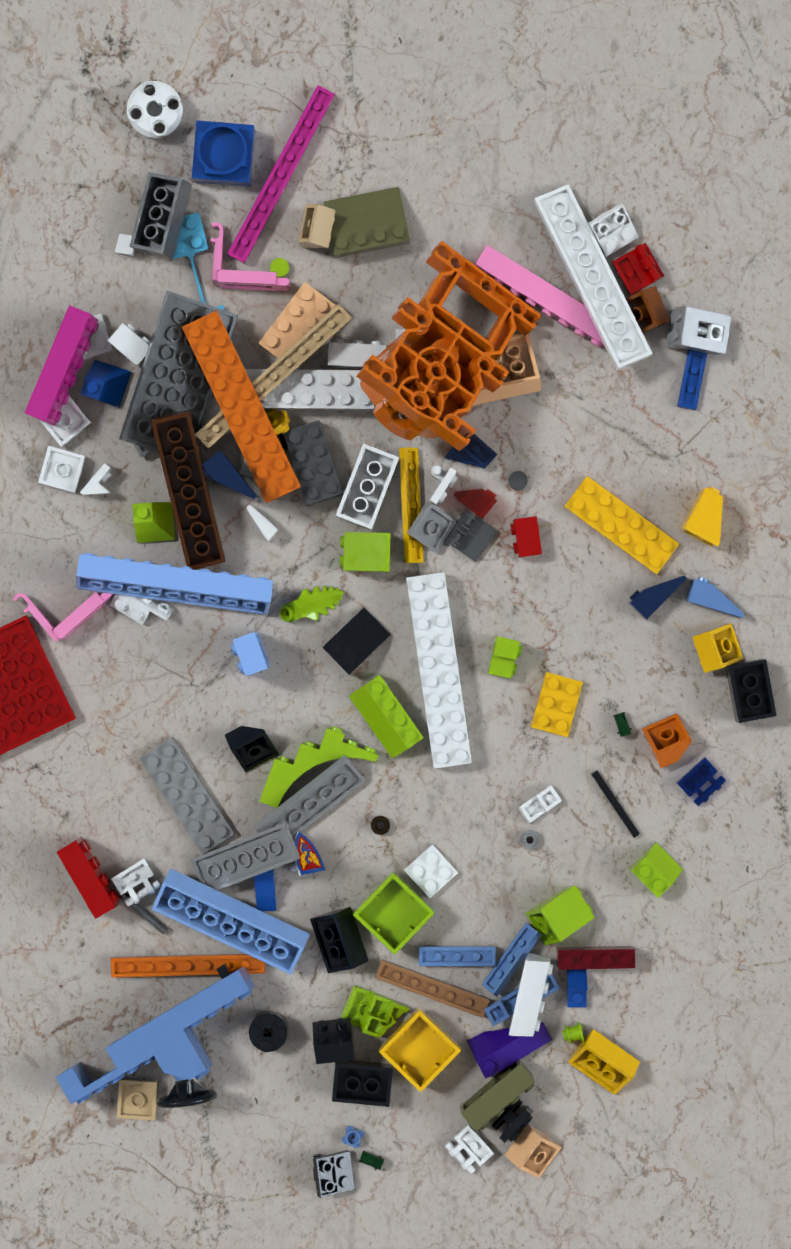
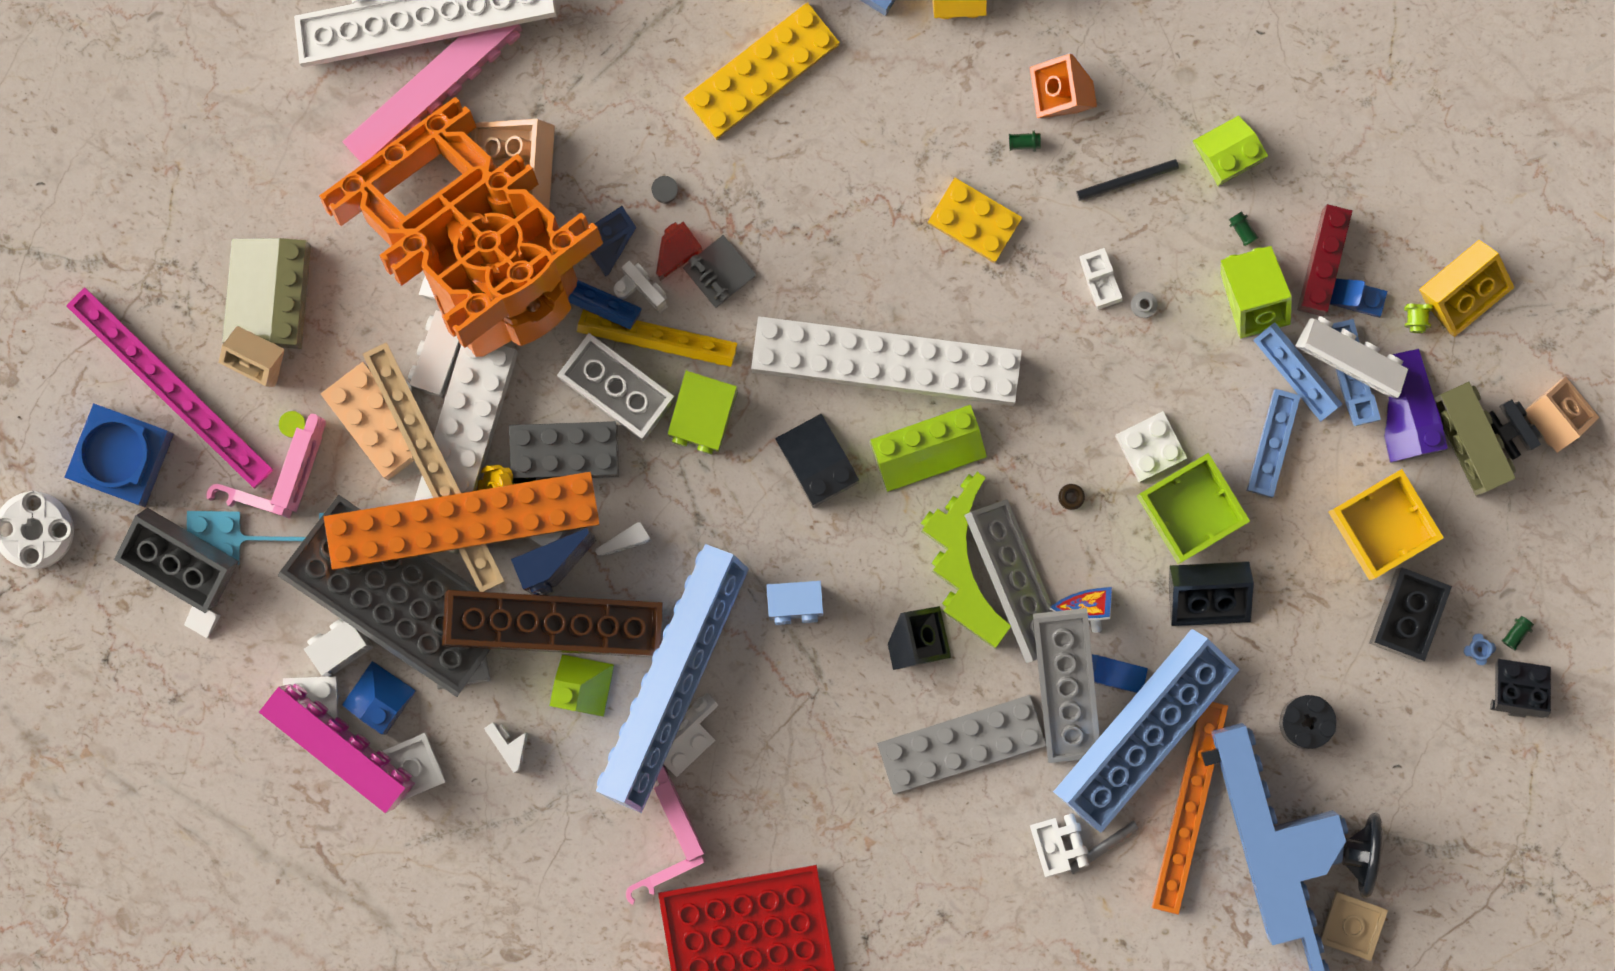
camera: 70 degrees left, 5 degrees down
(62, 469) = (476, 789): white plate -> none
(88, 877) = (1036, 906): red brick -> none
(311, 604) = (751, 506): lime plant -> none
(333, 1040) = (1343, 636): black brick -> none
(372, 1011) = (1317, 578): lime slope -> none
(423, 462) = (604, 305): none -> blue tile
(431, 527) = (693, 317): light grey plate -> none
(432, 988) = (1308, 488): medium nougat plate -> none
(473, 1145) = (1532, 491): white plate -> none
(504, 656) = (891, 270): lime brick -> none
(527, 537) = (742, 197): red brick -> none
(600, 897) = (1243, 228): none -> dark green pin
(651, 598) = (870, 60): dark blue slope -> none
(697, 777) = (1121, 62): clear blue plate -> none

